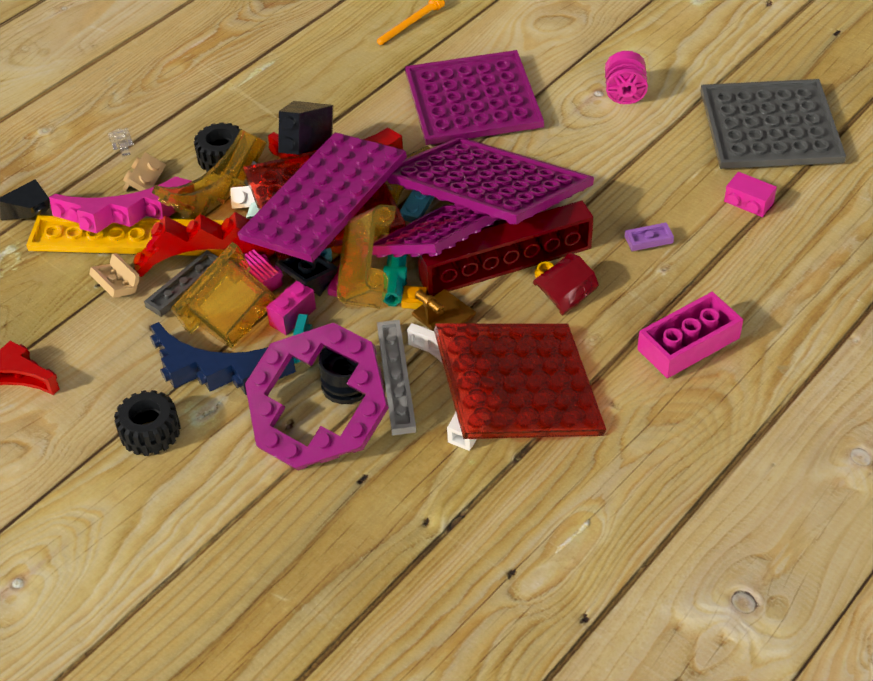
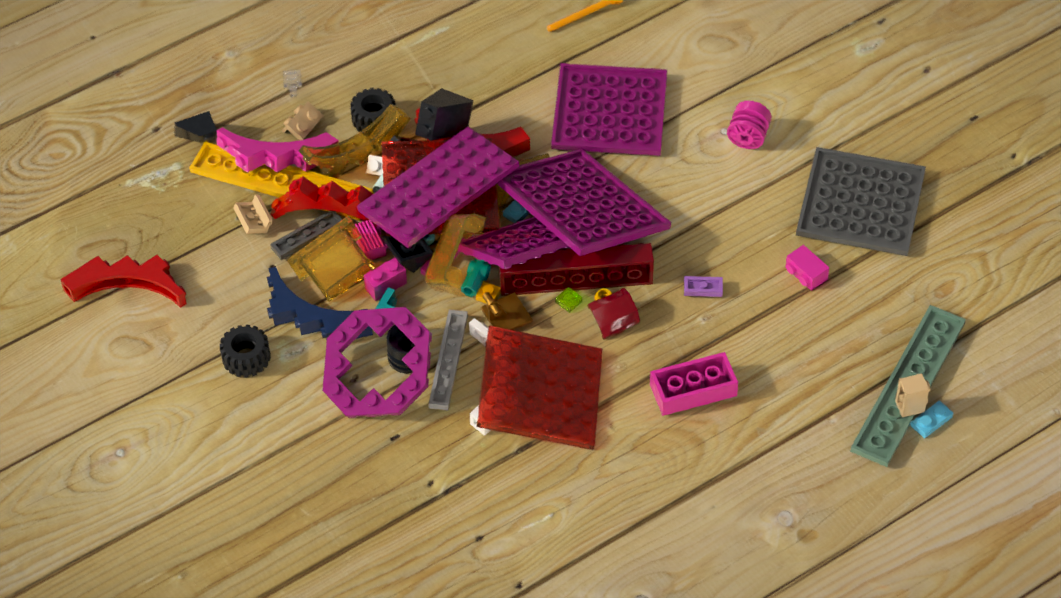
camera: 15 degrees right, 5 degrees up
(507, 283) = (568, 299): none -> clear neon green plate

